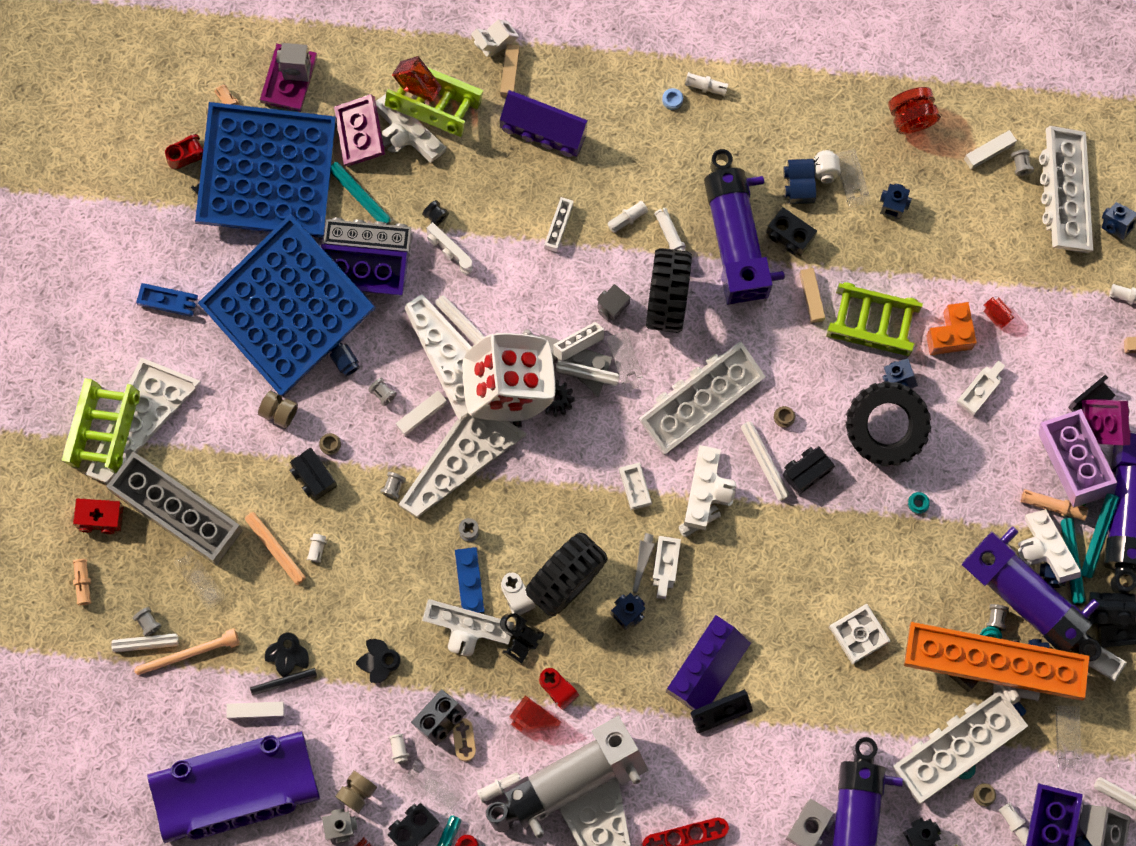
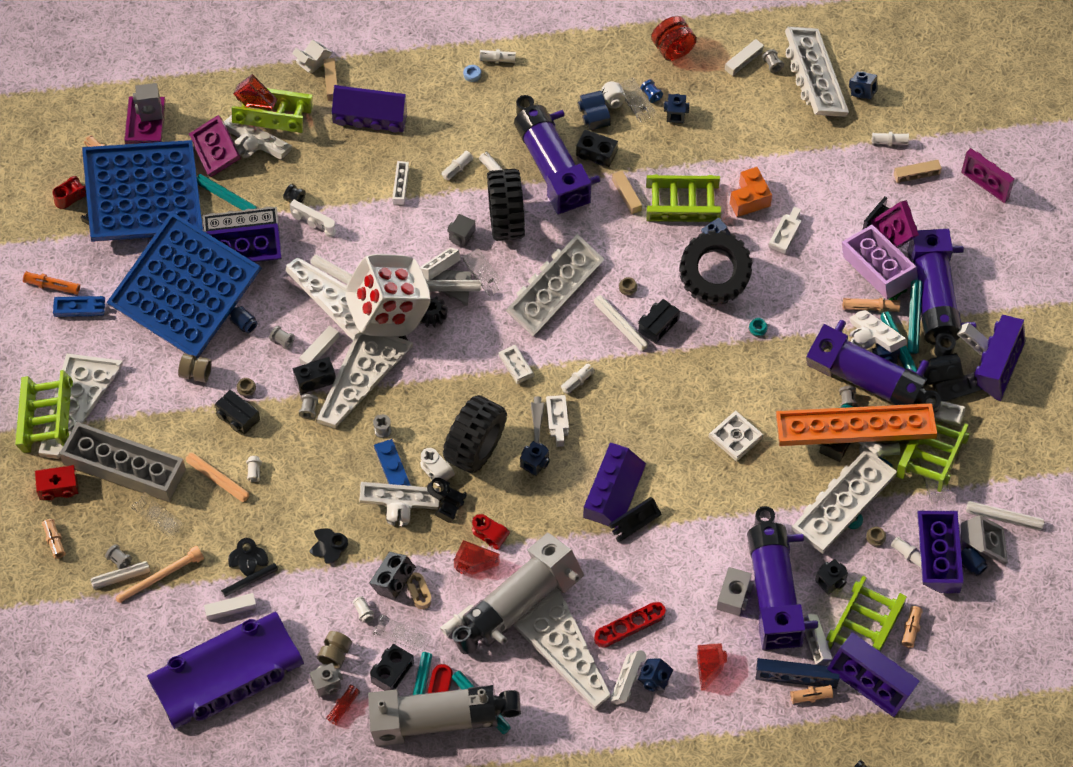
camera: 10 degrees left, 15 degrees down
(134, 258) = (30, 278): none -> orange pin
(407, 449) = (314, 375): none -> black brick
(707, 488) = (578, 351): white plate -> none
(872, 170) = (651, 91): none -> blue bush
(998, 312) = (784, 172): clear red brick -> none
(1054, 706) = (912, 451): none -> lime fence

